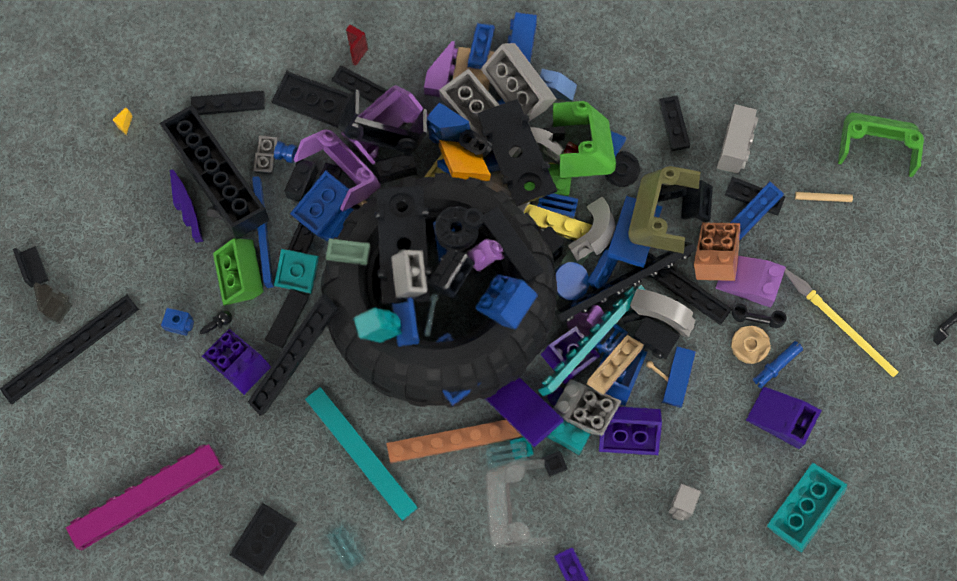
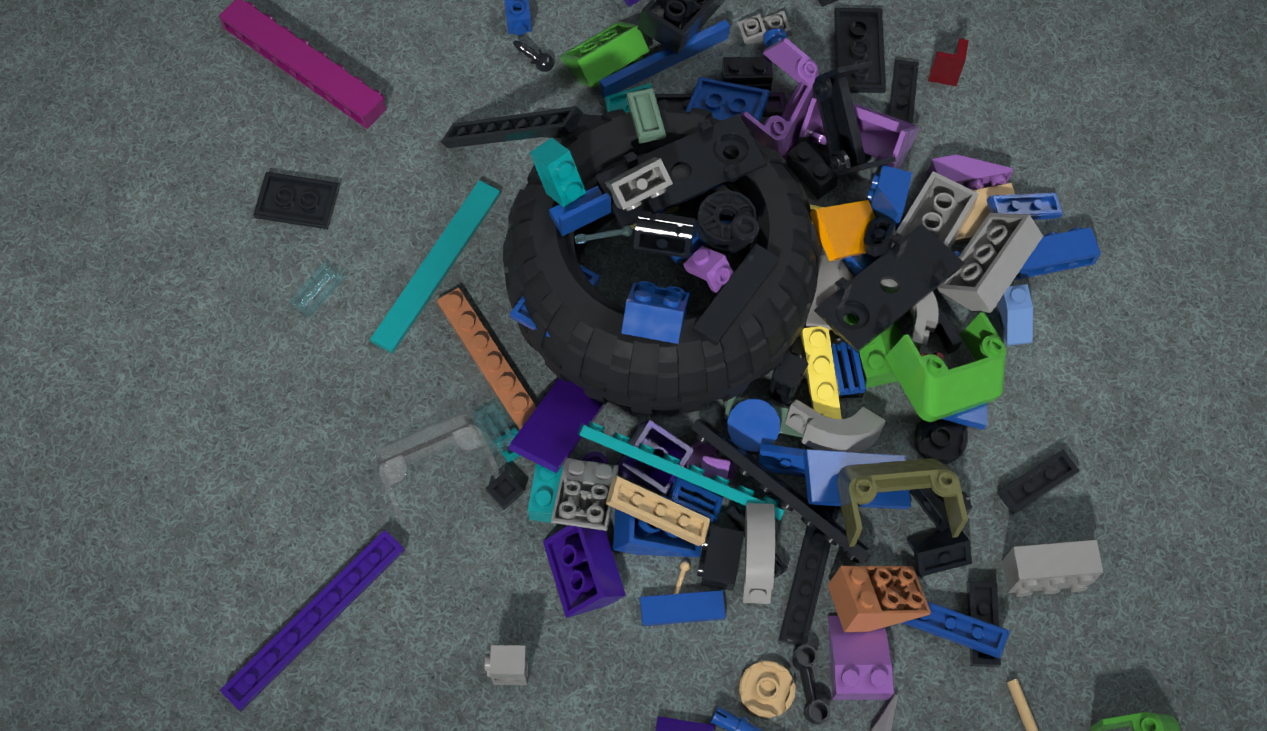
camera: 65 degrees right, 5 degrees down
(236, 361) = (494, 90): dark purple slope -> none

